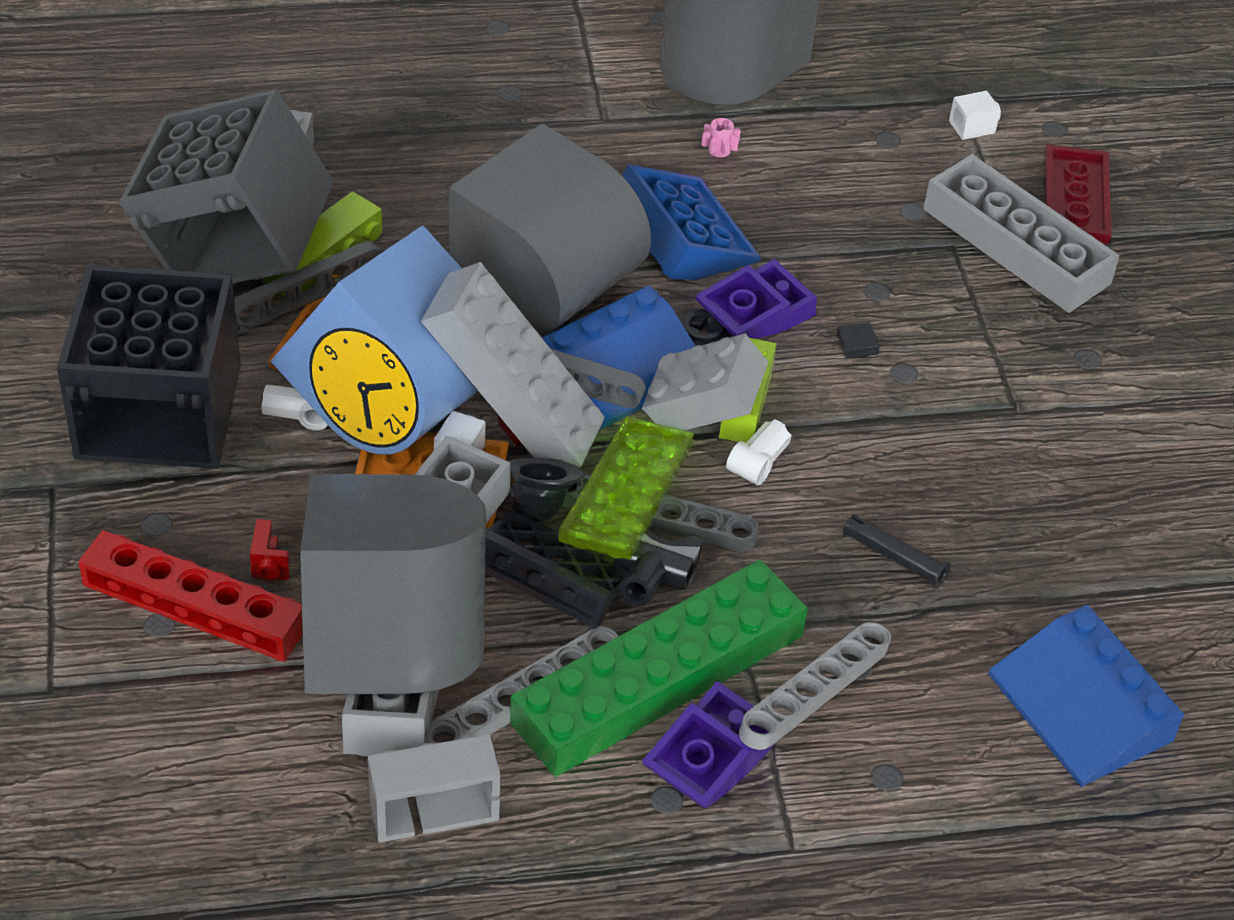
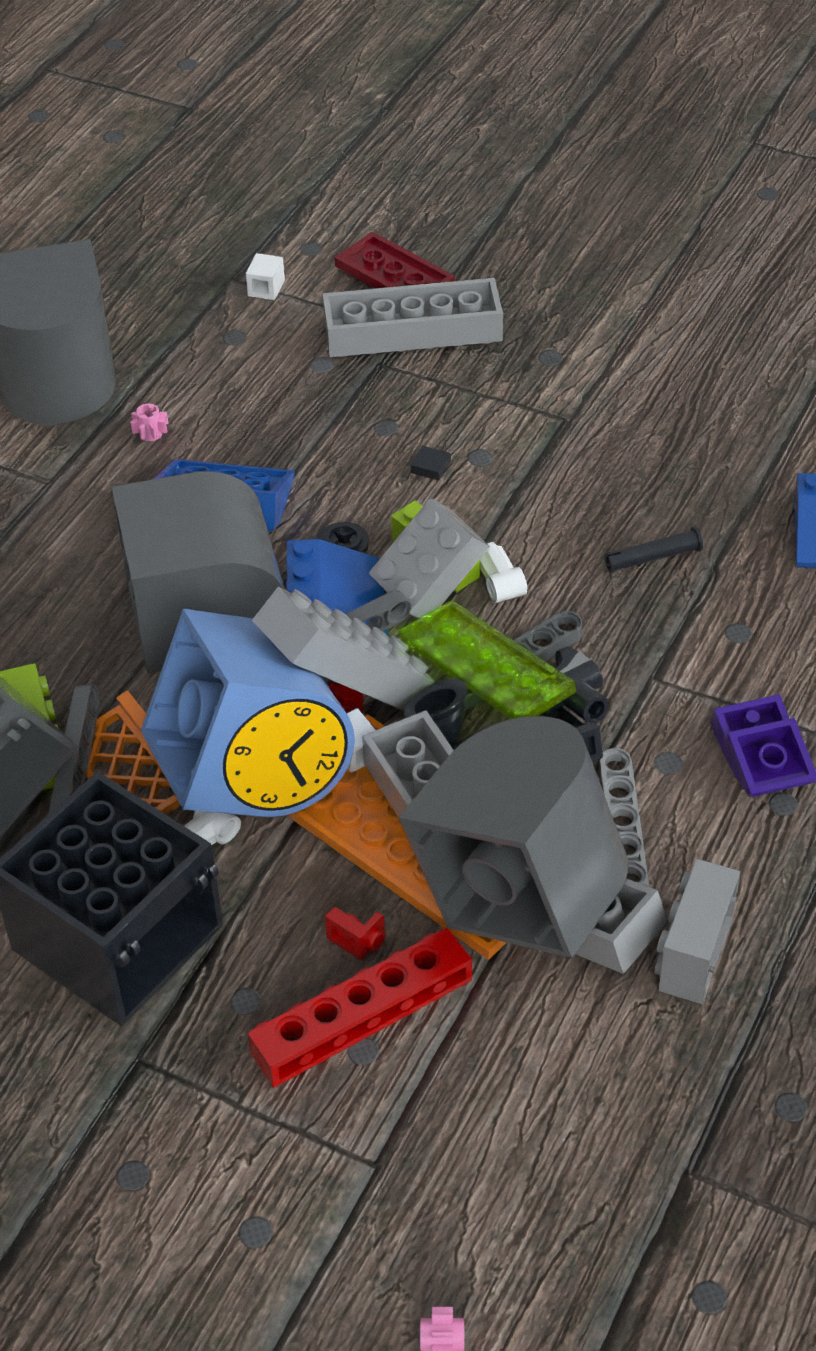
camera: 50 degrees left, 0 degrees up
(656, 667) = (669, 742): green brick -> none
(759, 301) = (348, 491): dark purple slope -> none
(811, 679) = (759, 654): light grey beam -> none

